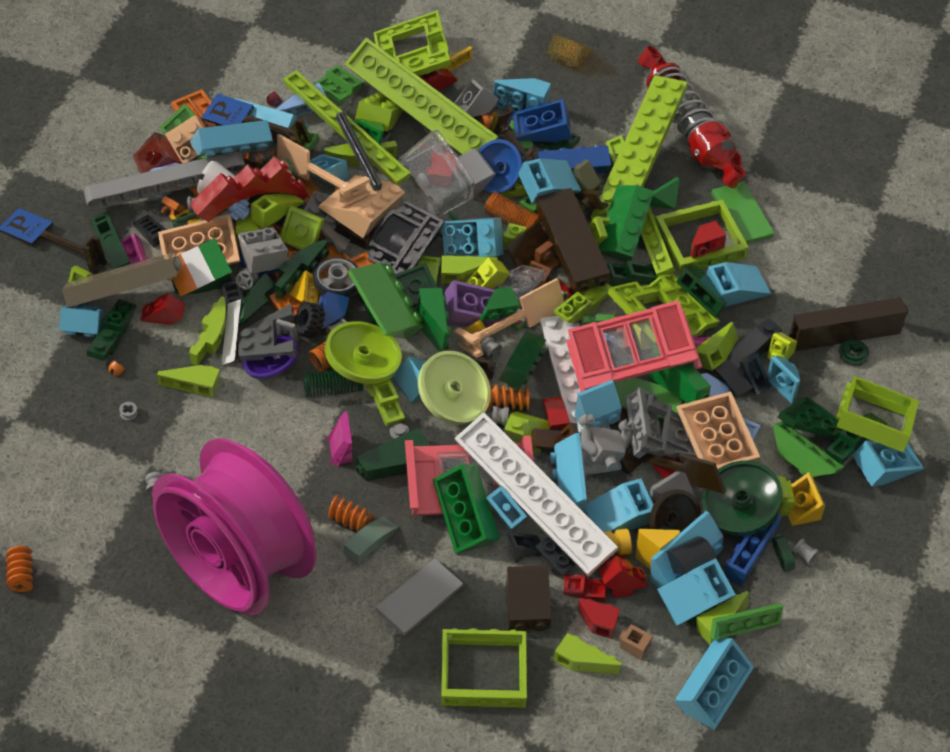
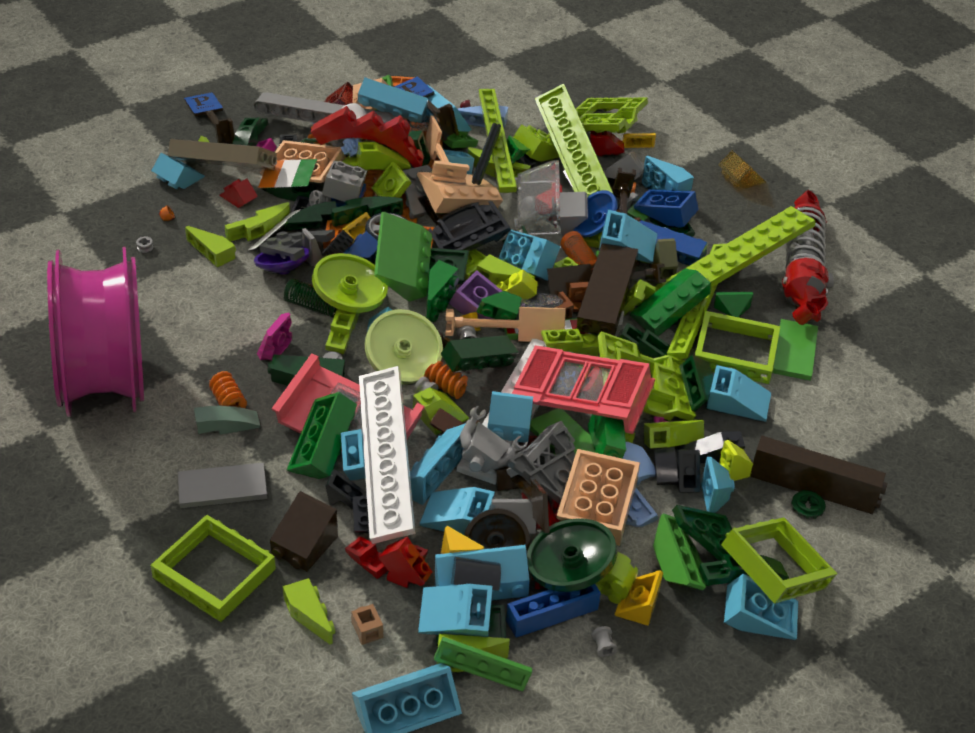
camera: 35 degrees right, 10 degrees down
(113, 330) = (192, 188): dark green slope -> none
(339, 84) = (527, 116): bright green slope -> none
(556, 412) = (483, 404): red slope -> none
(599, 617) = (355, 586): red slope -> none
(622, 540) = (428, 534): yellow wheel -> none
(708, 239) = (732, 345): red slope -> none
(783, 553) = (580, 631): dark green beam -> none

